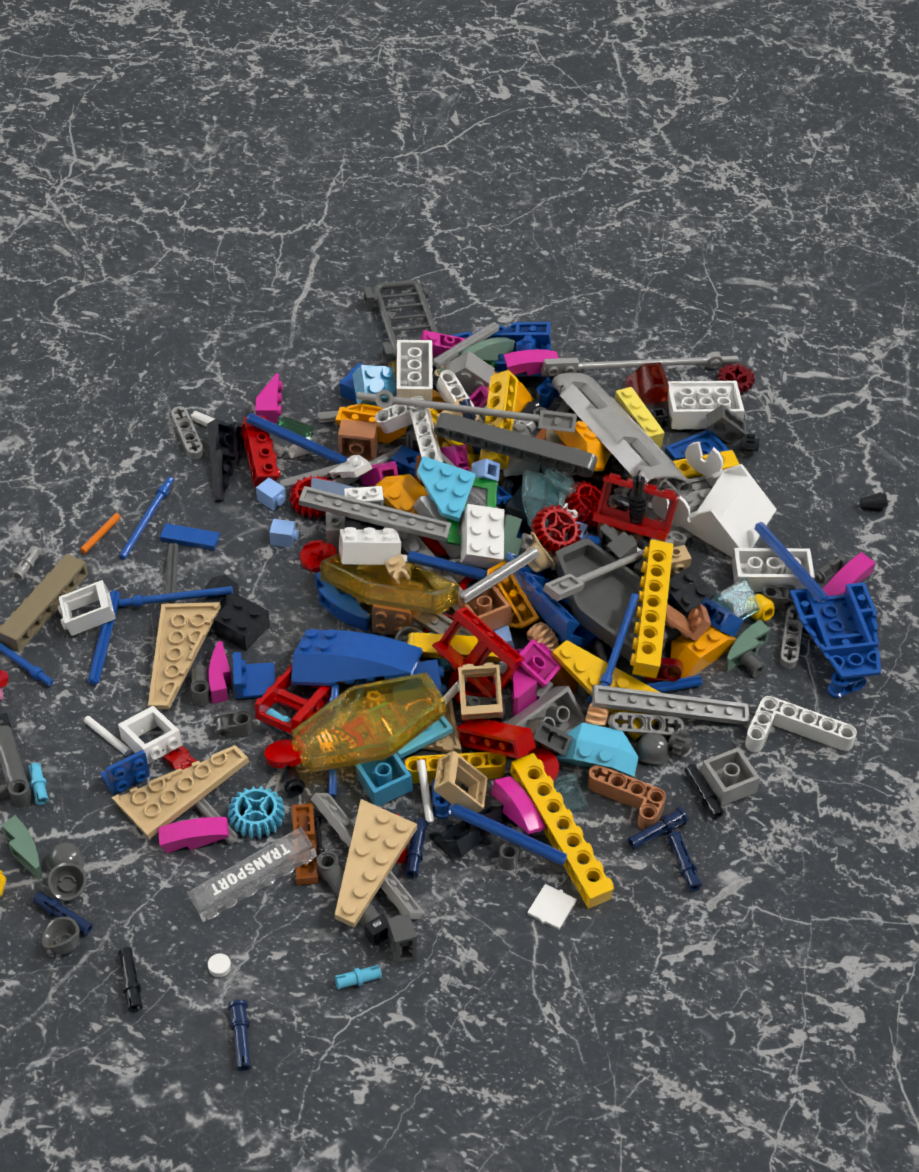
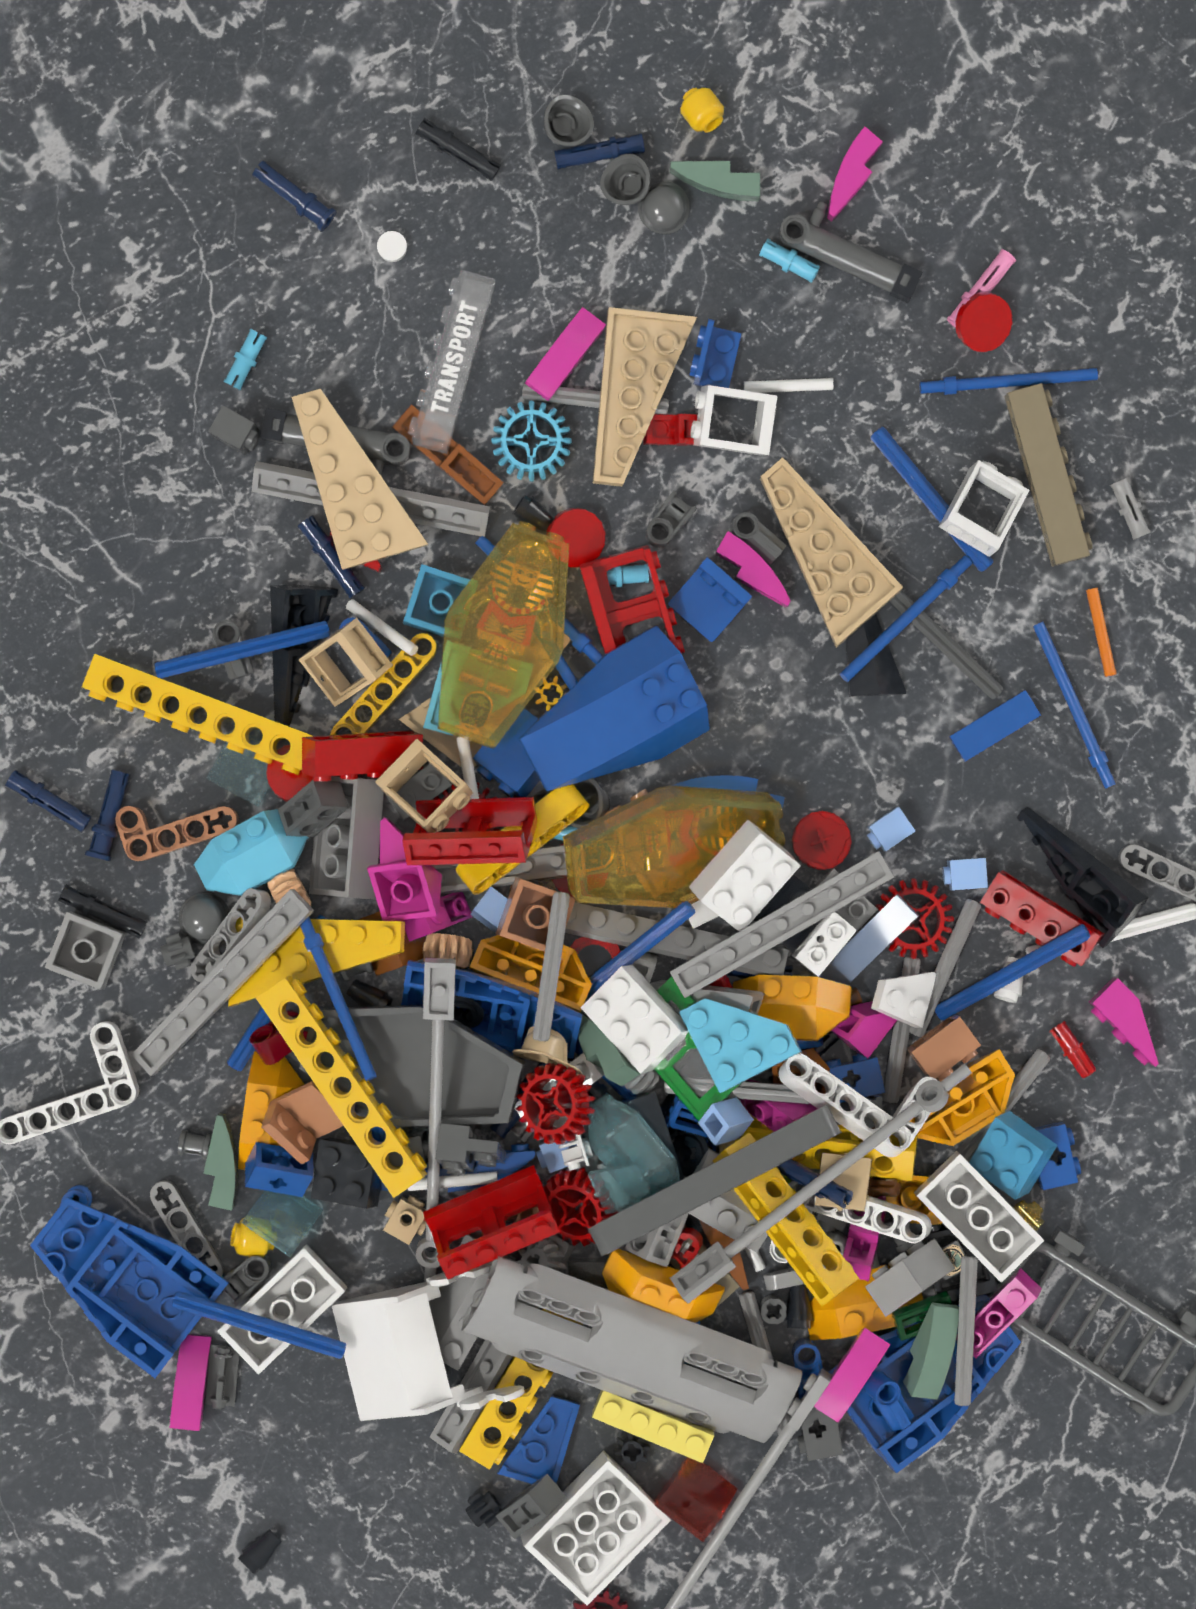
camera: 145 degrees right, 40 degrees up
(241, 622) = (800, 658): black brick -> none
(297, 427) = (1052, 1007): clear green tile -> none
(304, 408) = (1073, 1049): none -> red axle
(320, 849) = (463, 494): black hinge -> none
(397, 568) = (680, 870): tan plate -> none
(517, 805) = (266, 696): dark pink slope -> none
(552, 906) = (136, 622): white piece -> none
(637, 501) = (484, 1219): black hinge -> none

